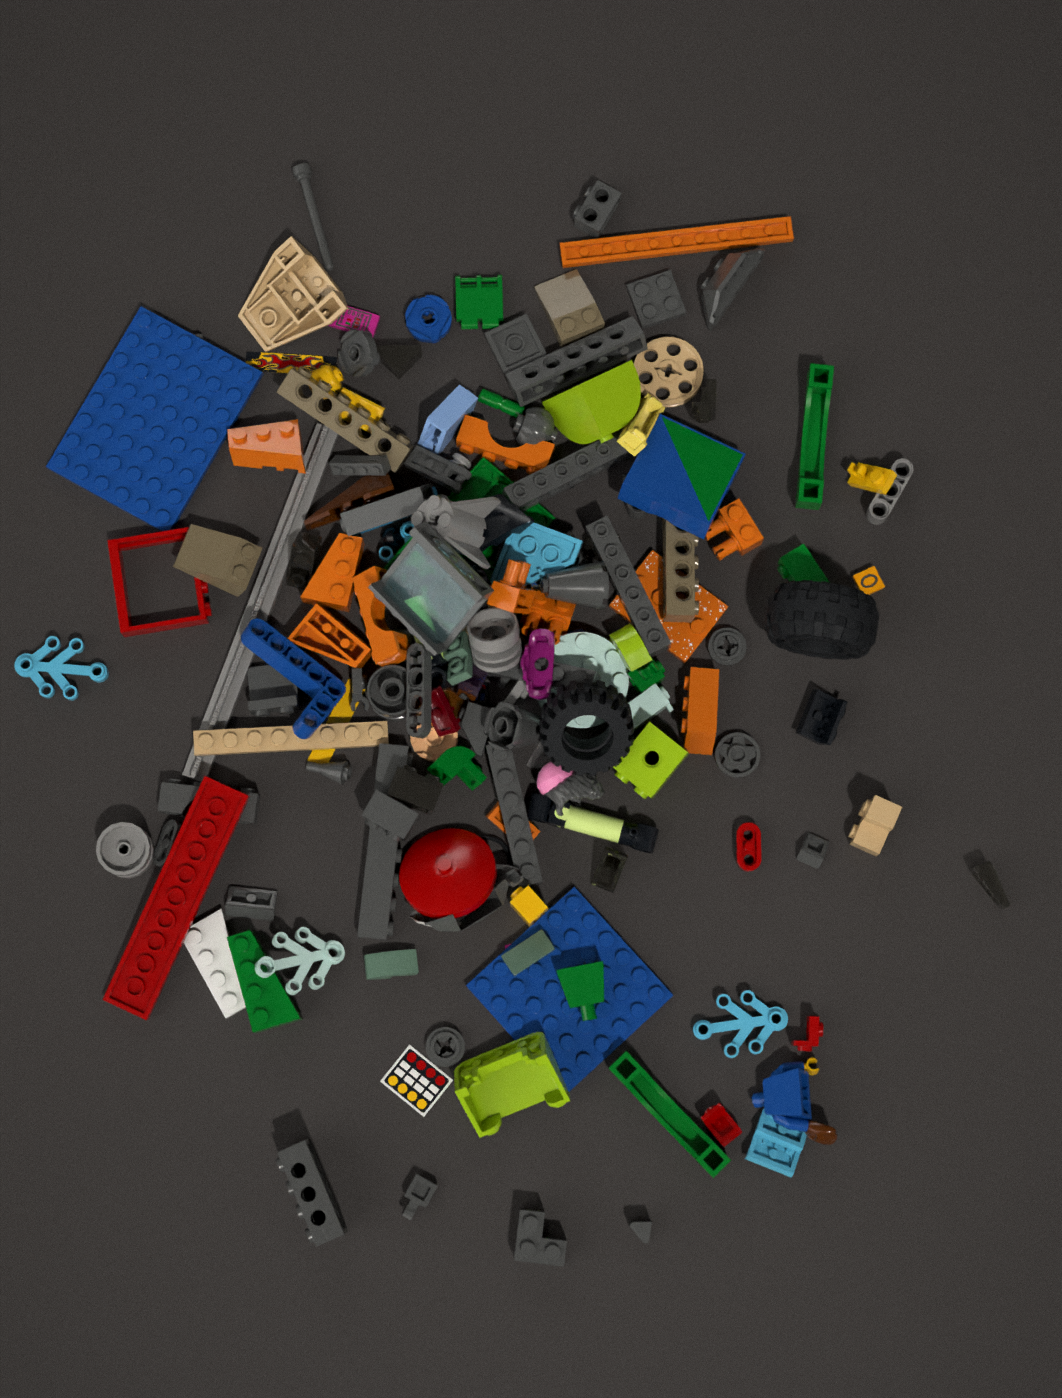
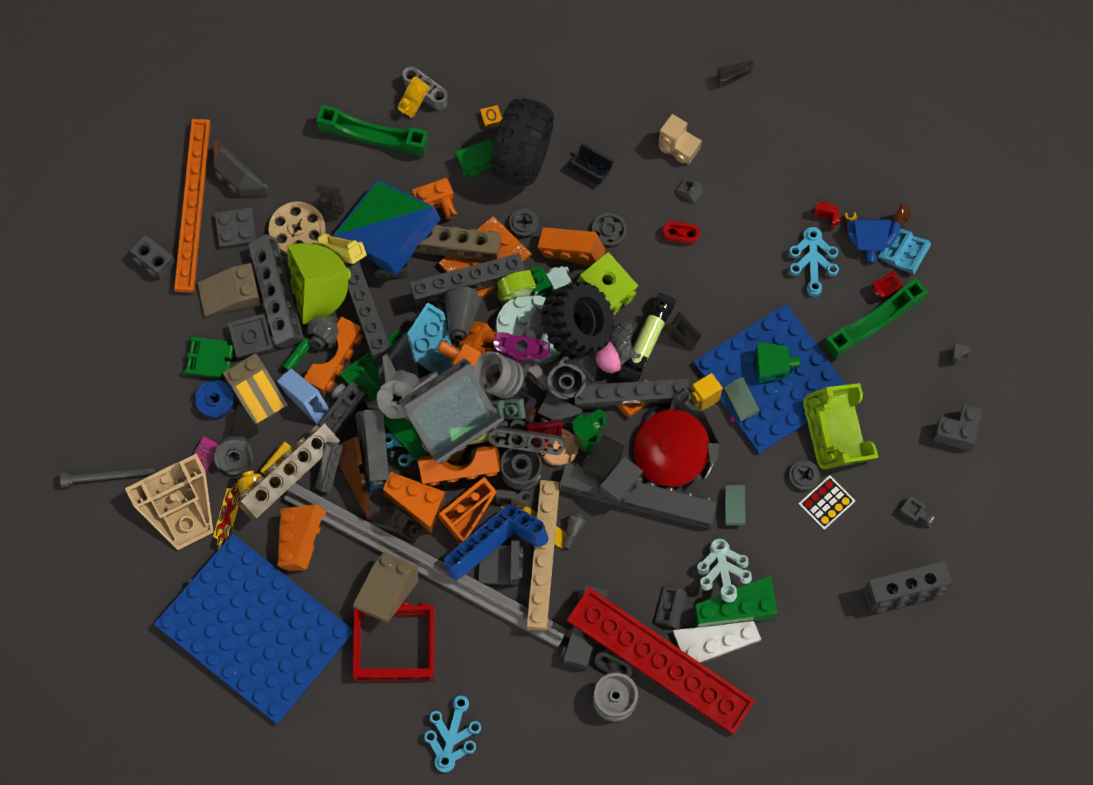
camera: 85 degrees left, 10 degrees down
(448, 362) = (255, 389): none -> slope

